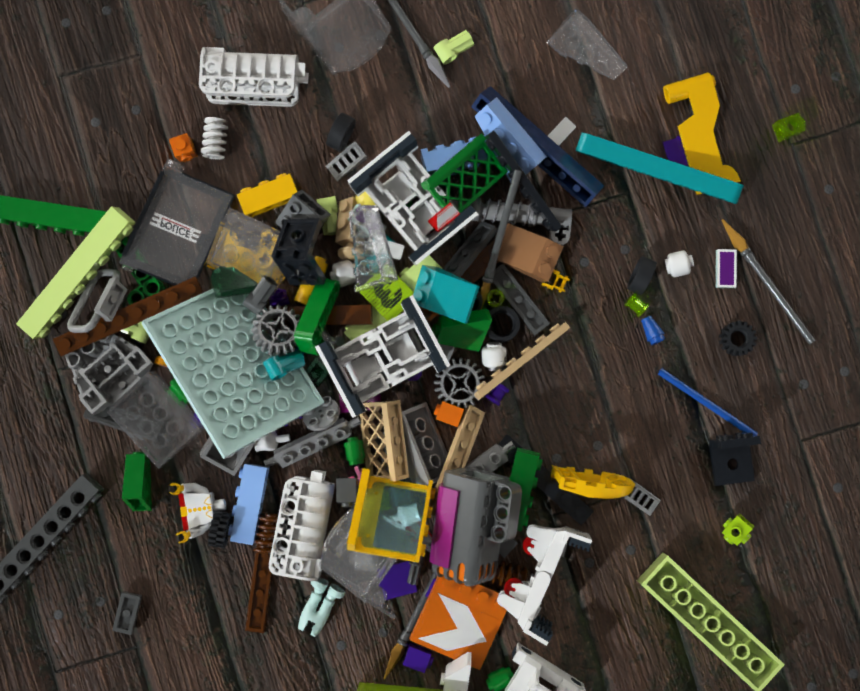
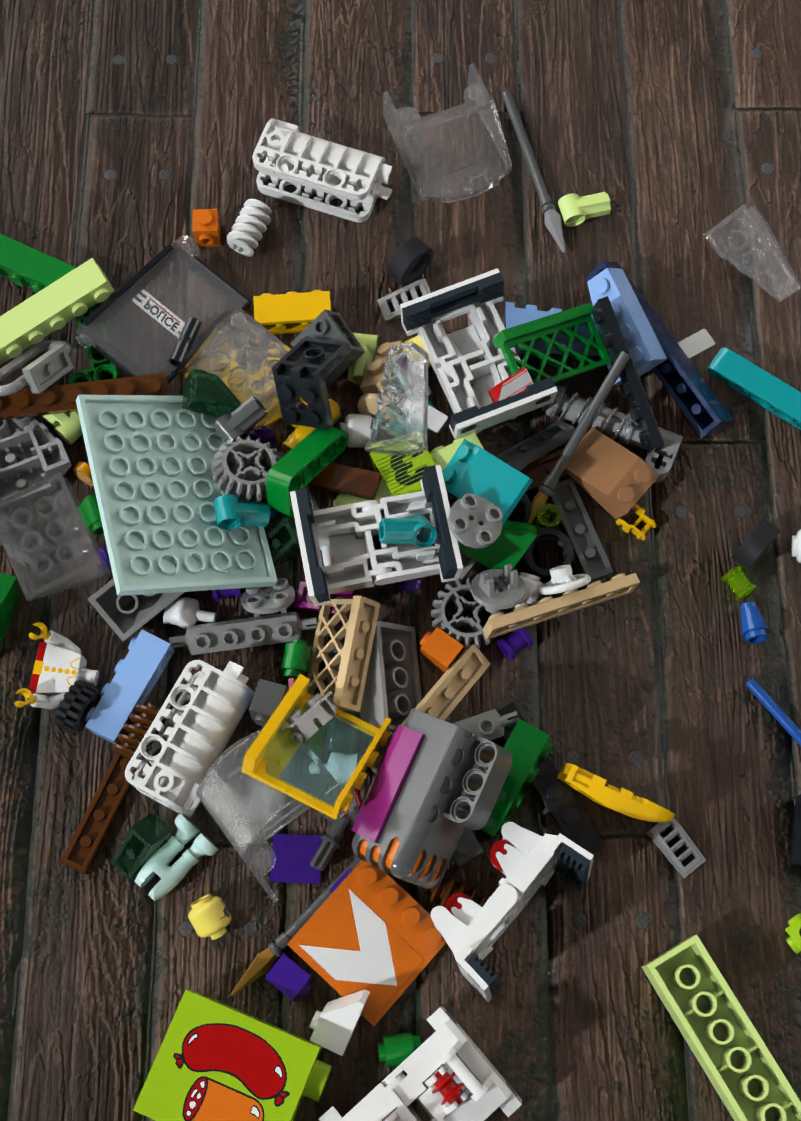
camera: 15 degrees right, 15 degrees down
(199, 249) = (185, 341): none -> black piece
(294, 604) = (140, 844): none -> clear green slope
(354, 636) = (209, 916): none -> light yellow head
(374, 502) = (302, 724): none -> light grey hinge
(408, 343) = (405, 531): none -> teal piece
(448, 338) = (480, 511): none -> light grey plate
(470, 370) = (498, 589): none -> light grey plate
(517, 341) = (563, 581): none -> white piece

